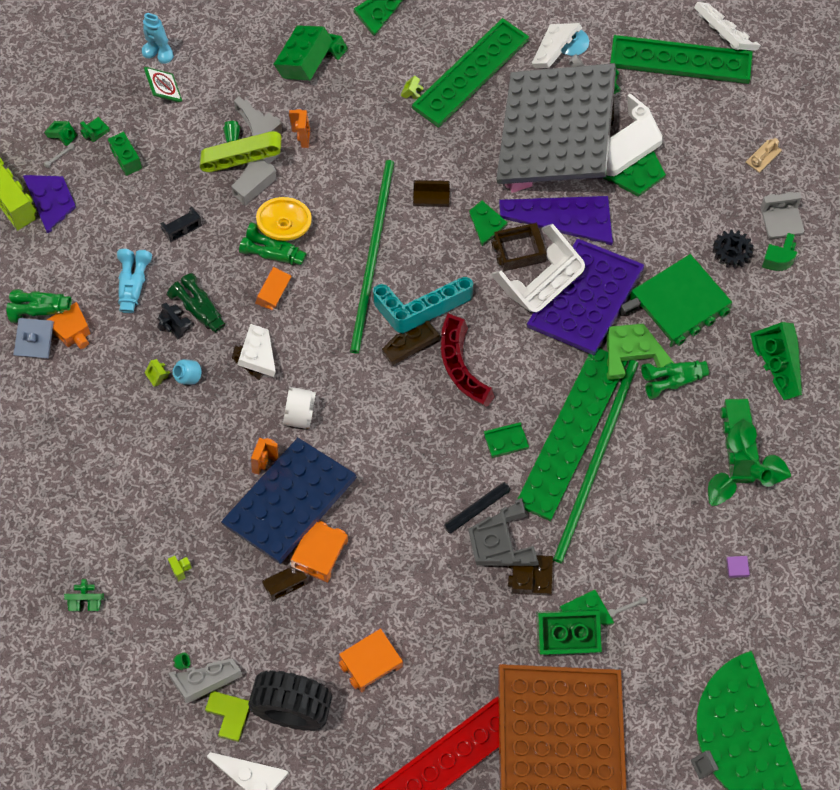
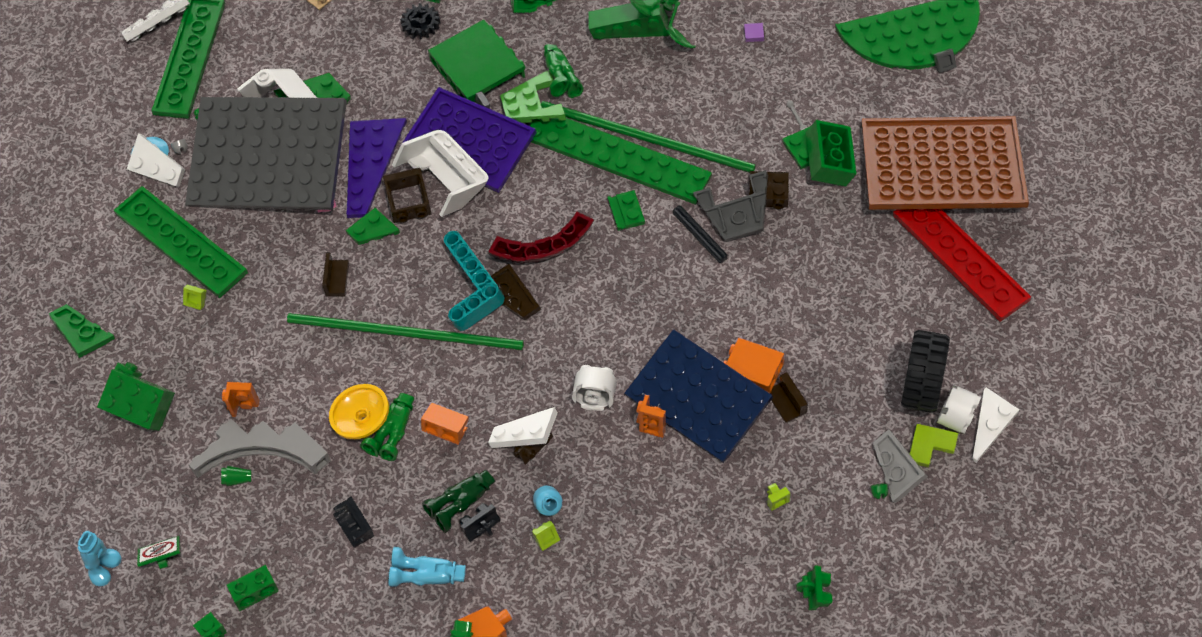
camera: 85 degrees left, 5 degrees down
(240, 151) = (268, 456): lime beam -> none
(259, 737) = (958, 409): none -> white brick
(369, 660) = (868, 318): orange panel -> none

